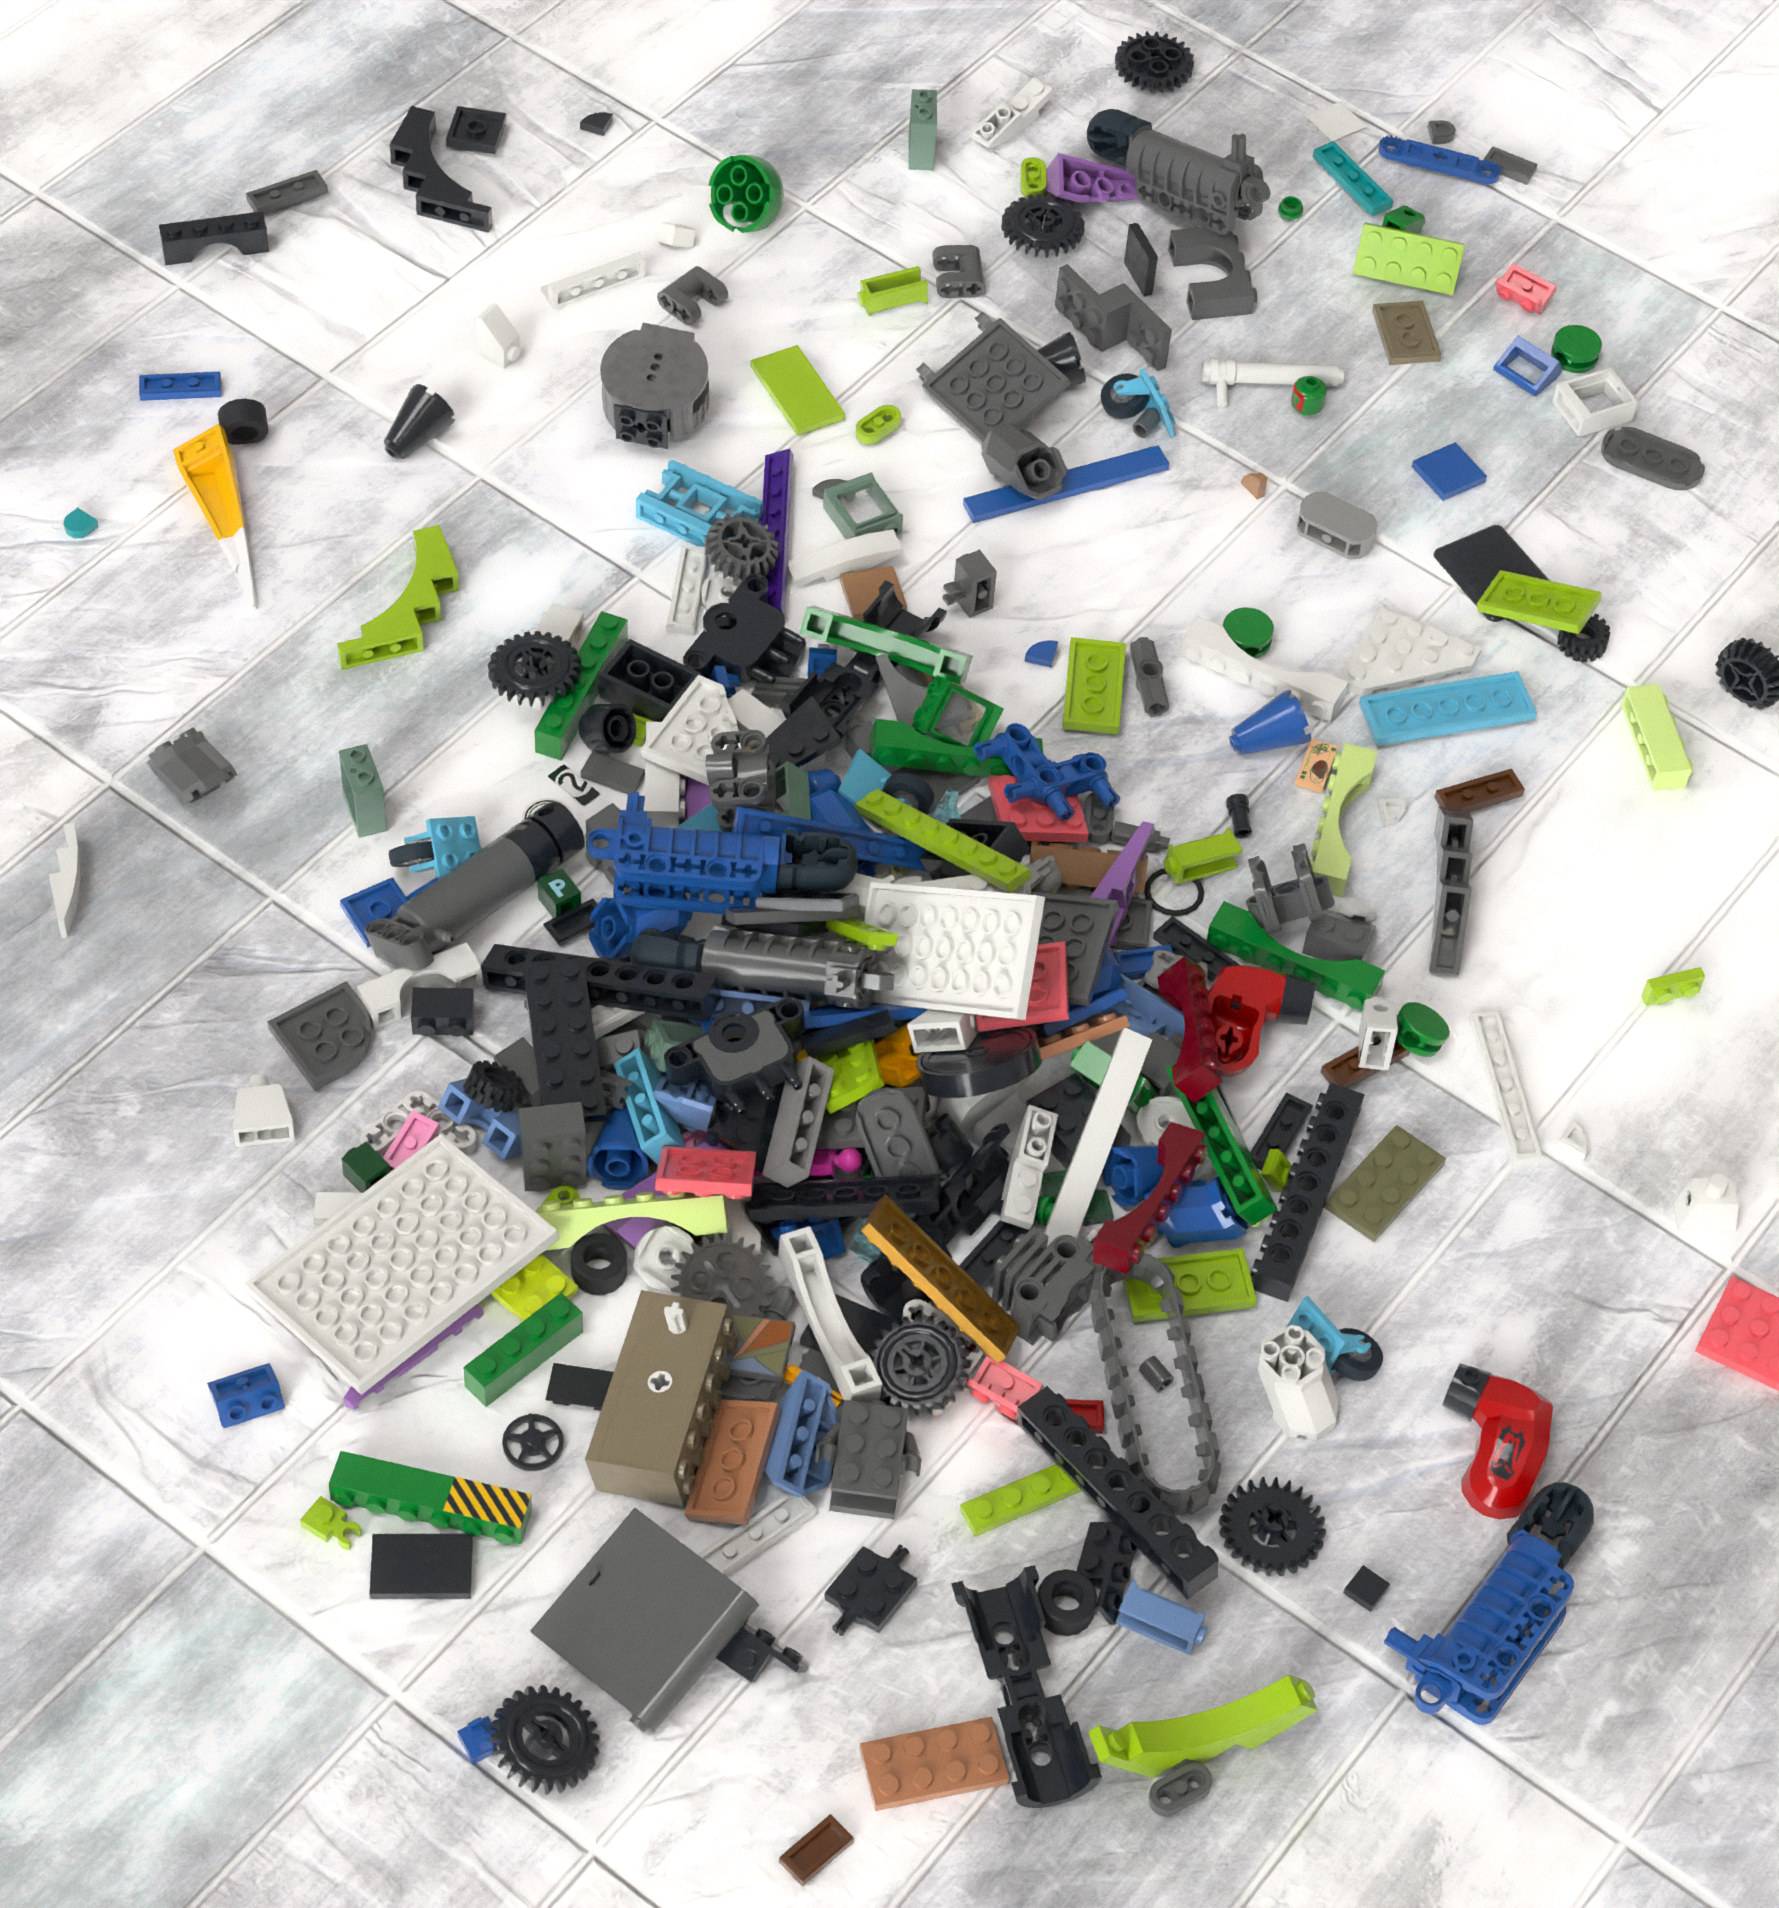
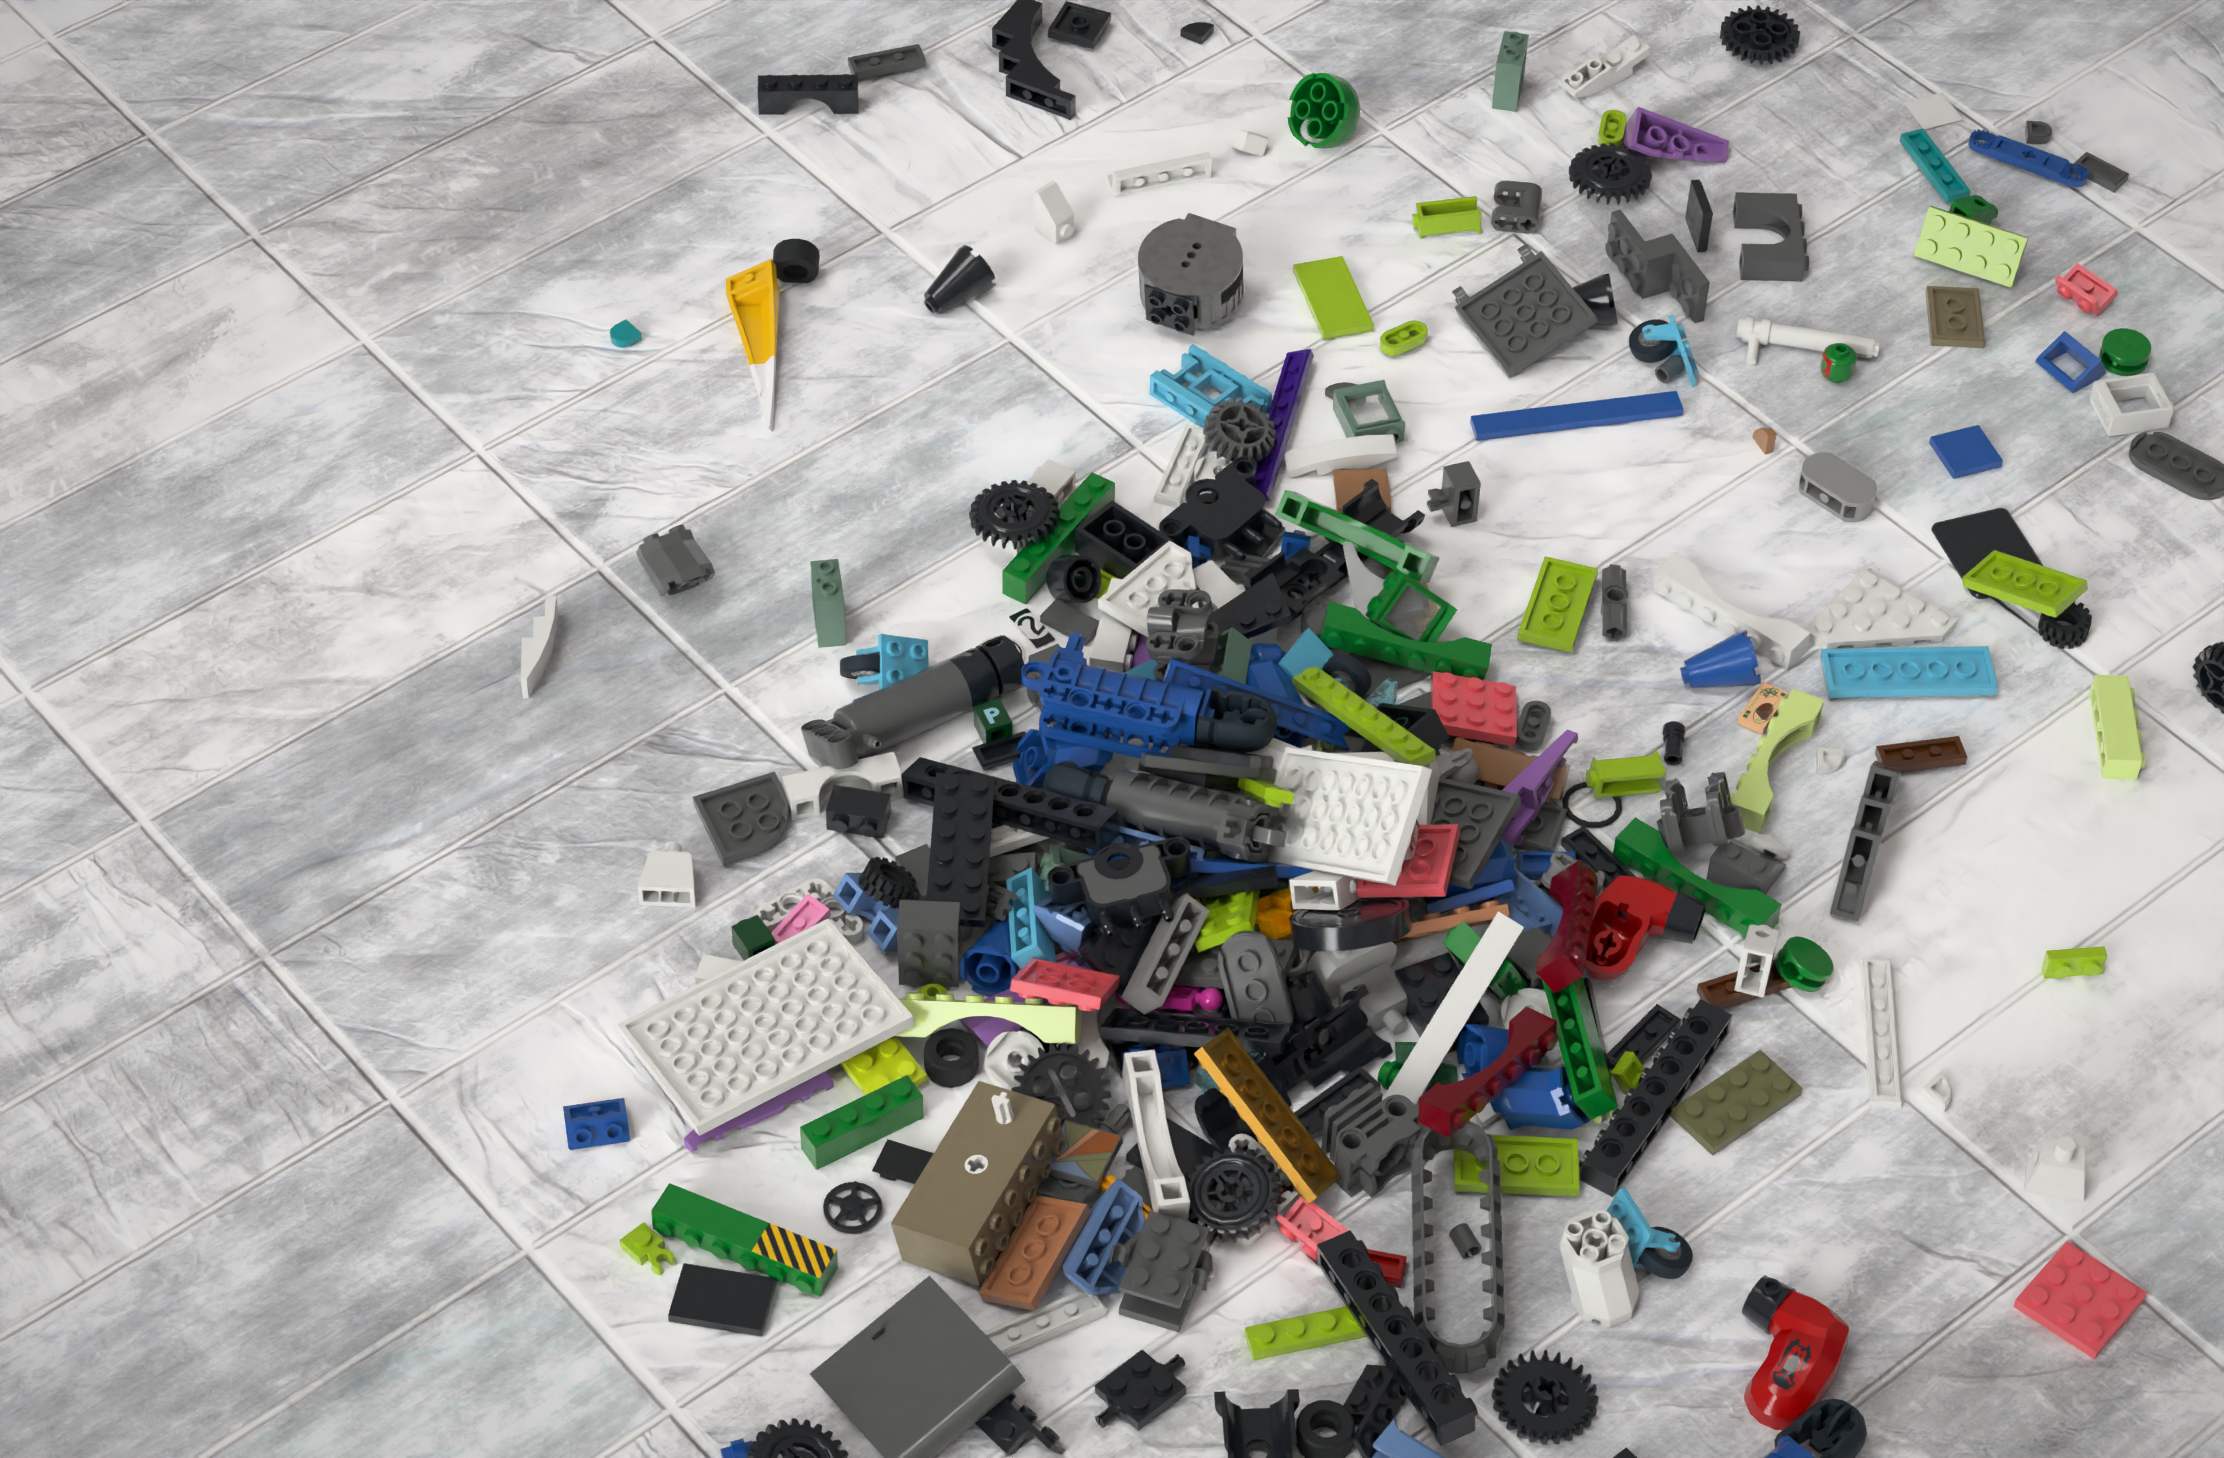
camera: 15 degrees right, 5 degrees down
(180, 386) = (746, 223): blue tile -> none
(373, 903) = (815, 706): blue tile -> none
(398, 628) = (897, 464): lime arch -> none
(677, 296) = (1236, 198): dark grey connector -> none
(1023, 461) = (1536, 388): dark grey brick -> none
(1027, 1167) = (1381, 1030): white slope -> none
(1042, 653) = (1514, 568): blue tile -> none
(1047, 780) = (1486, 681): blue pin -> none
(1123, 832) = (1578, 752): dark grey cylinder -> none
(1181, 171) = (1757, 138): dark grey piece -> none
(1250, 630) = (1725, 573): green head -> none
(1290, 208) = (1865, 186): green plate -> none

